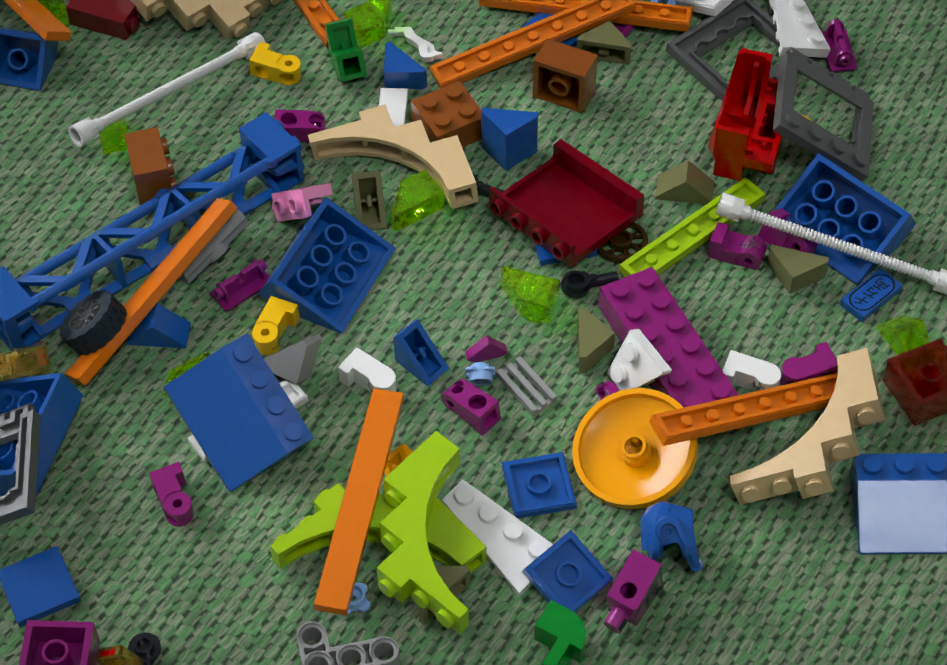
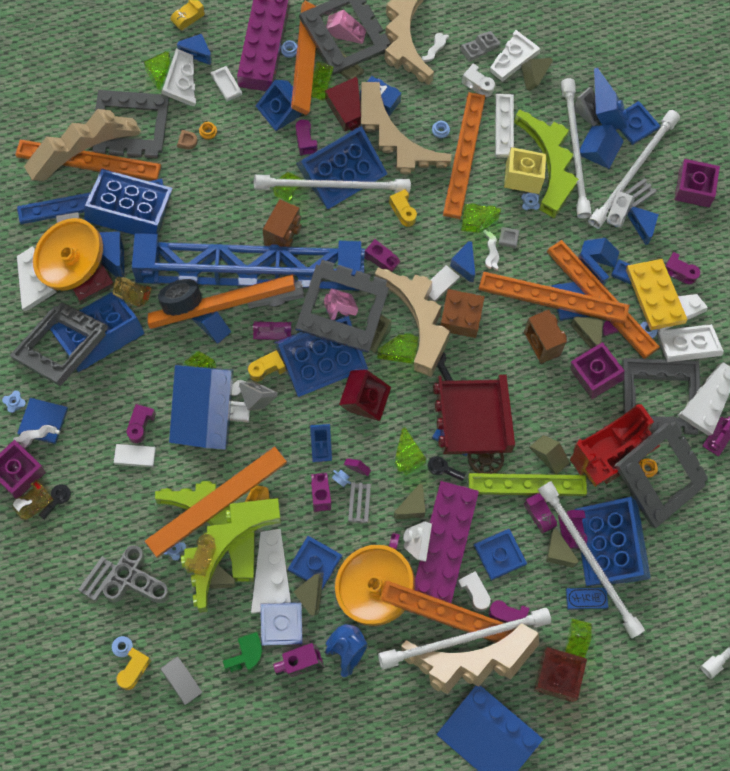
camera: 35 degrees right, 15 degrees up
(39, 609) = (27, 436): none -> white hair
(87, 73) = (303, 136): none -> magenta leg
(155, 57) = (342, 160): none -> blue slope
(200, 536) = (134, 455): none -> white tile
(320, 221) = (334, 330): none -> dark grey hinge
(343, 50) = (445, 228): green brick -> none
(366, 372) = (289, 439): white leg -> none
(406, 543) = (203, 555): none -> clear yellow leg
(419, 271) = (365, 394): none -> dark red slope
(422, 19) = (508, 237): none -> light grey tile
(509, 135) = (480, 351): blue slope -> none
(571, 514) = (310, 593): none -> olive slope
(653, 71) = (597, 370): none -> magenta brick
(735, 321) = (500, 554): none -> blue tile
(738, 496) = (392, 658): none -> white hose

